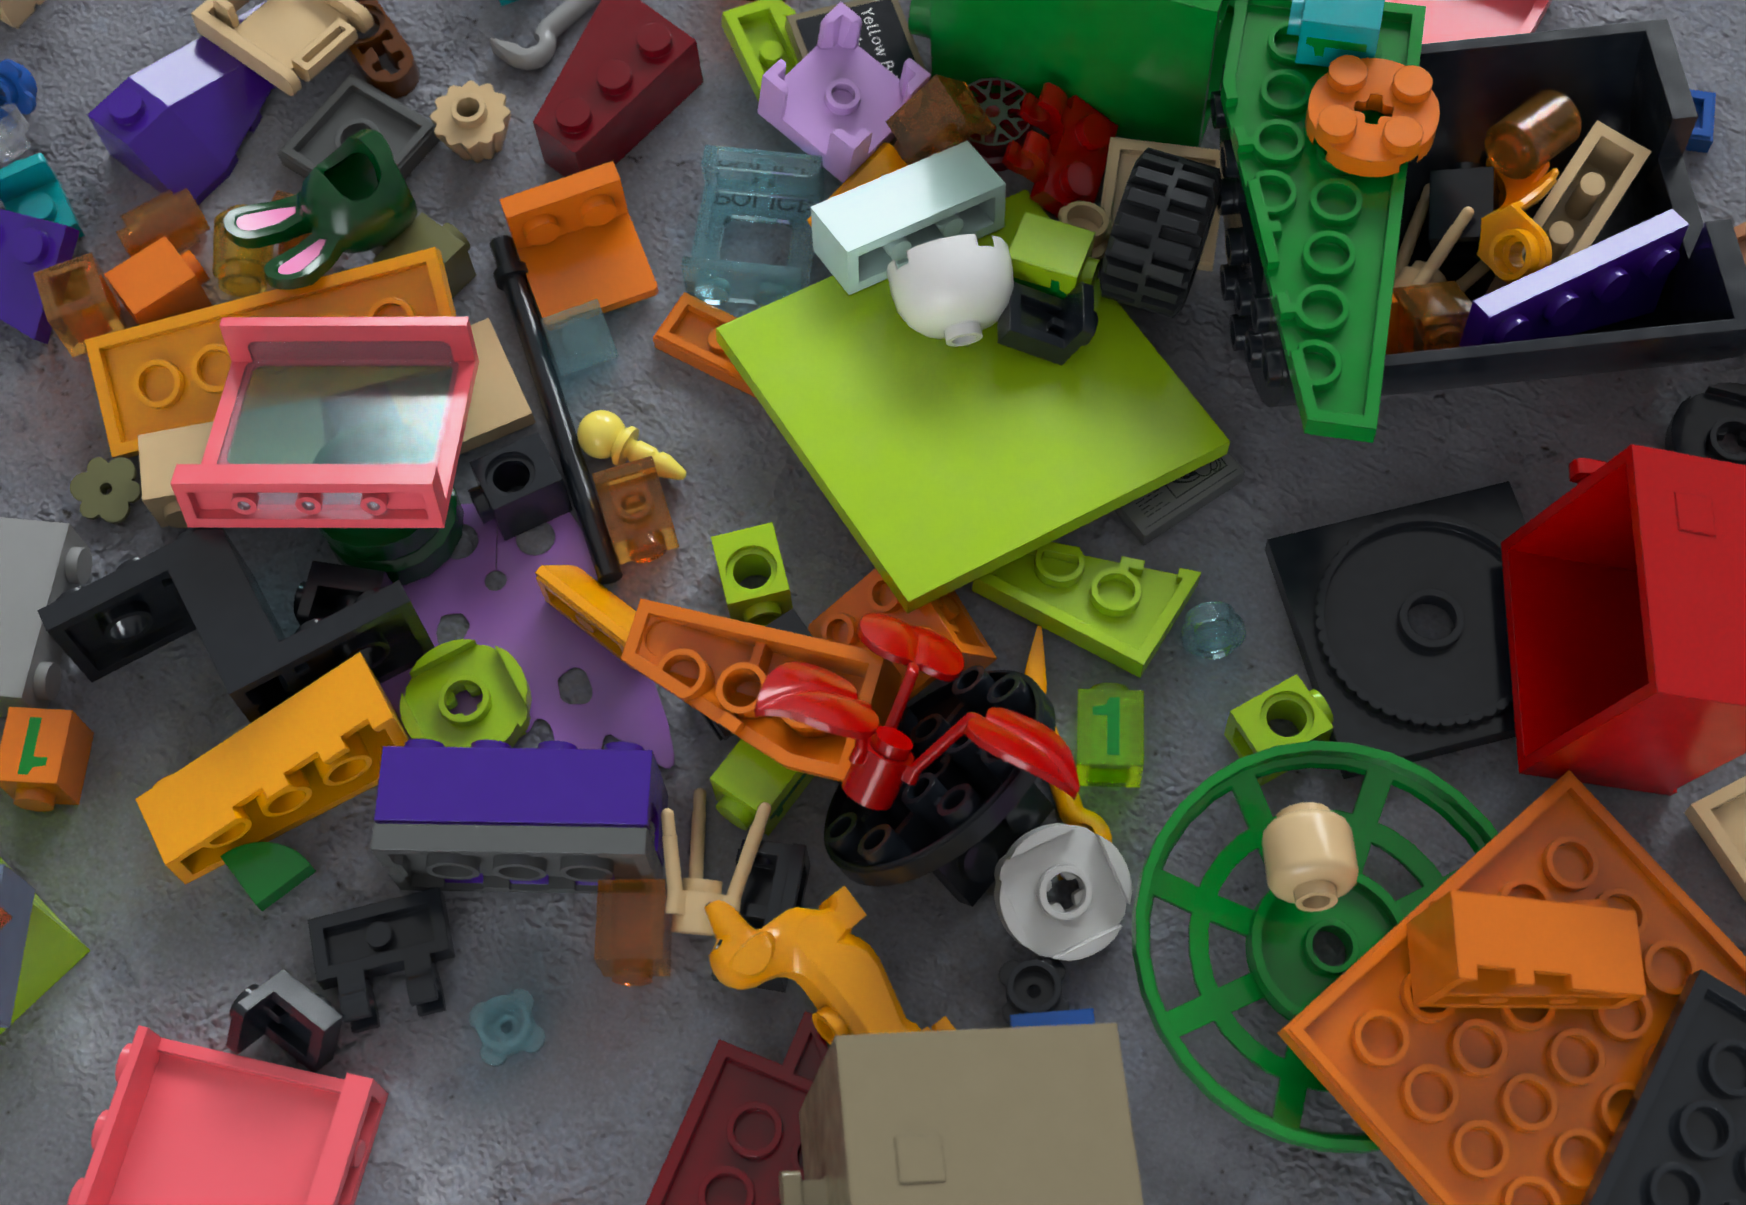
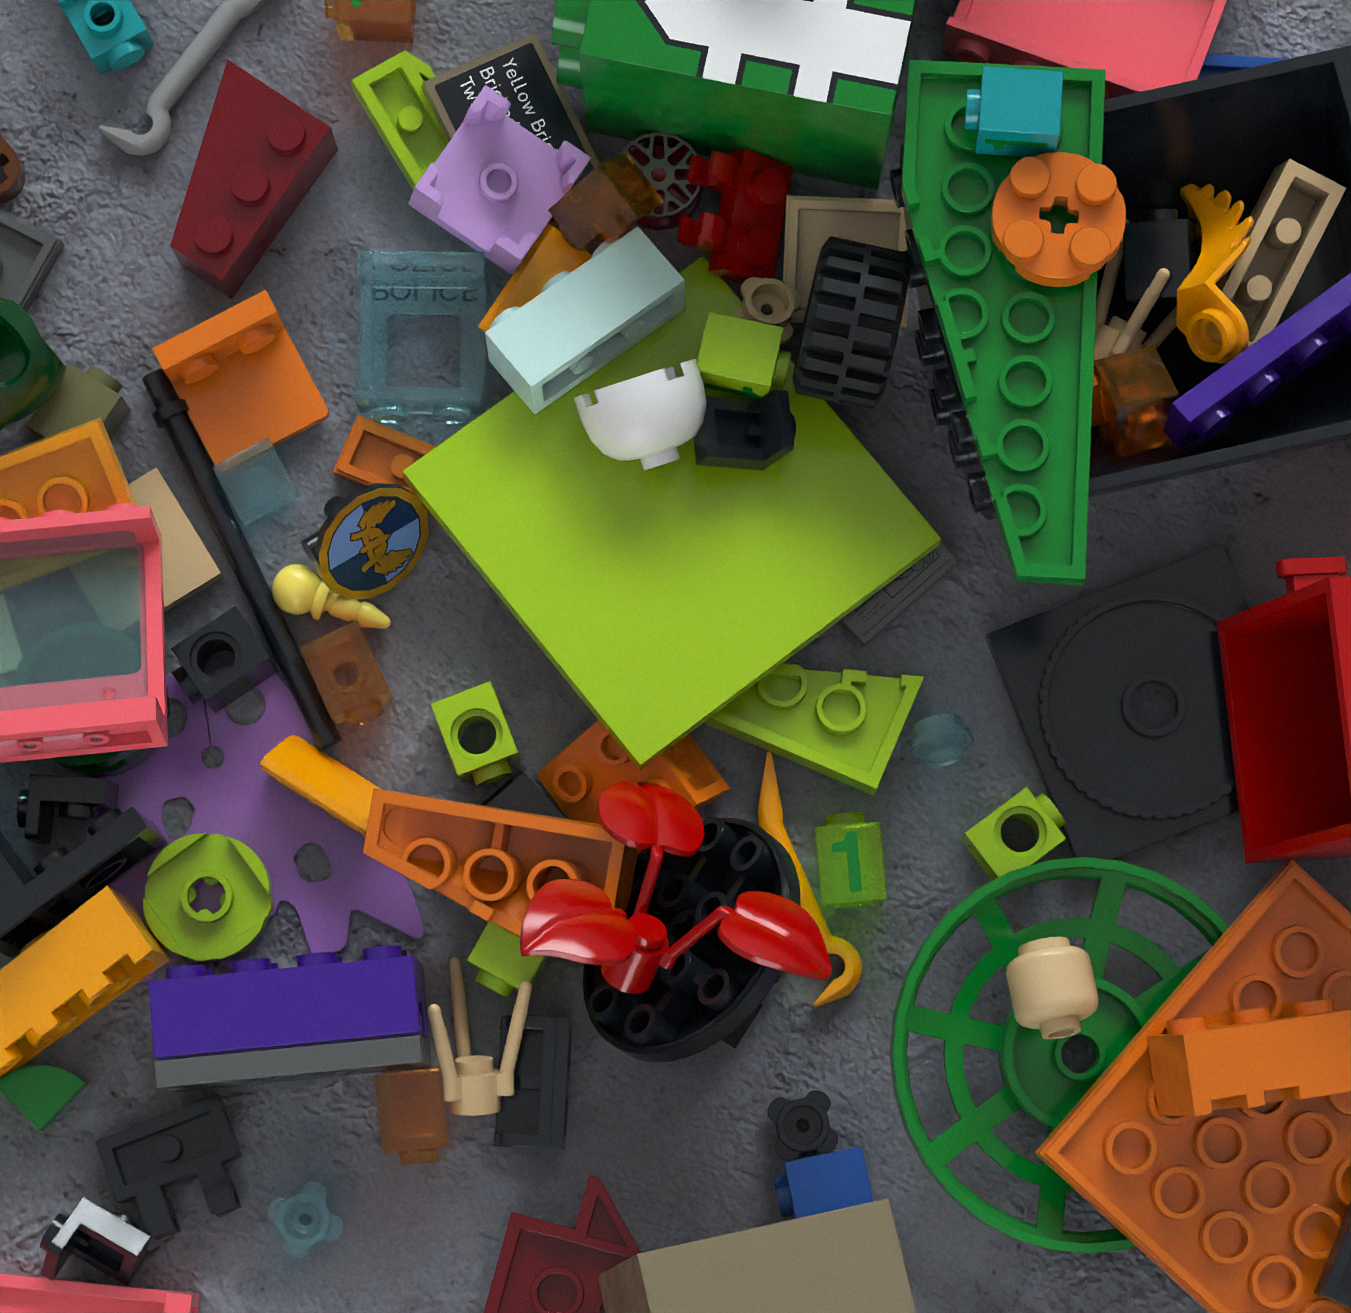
camera: 10 degrees left, 15 degrees up
(472, 120) = (87, 216): tan piece -> none
(676, 391) = (369, 540): none -> shield
(821, 956) = (623, 1150): light orange animal -> none
(1098, 905) = (809, 1065): white plate -> none
(1533, 134) = (1224, 179): clear orange brick -> none

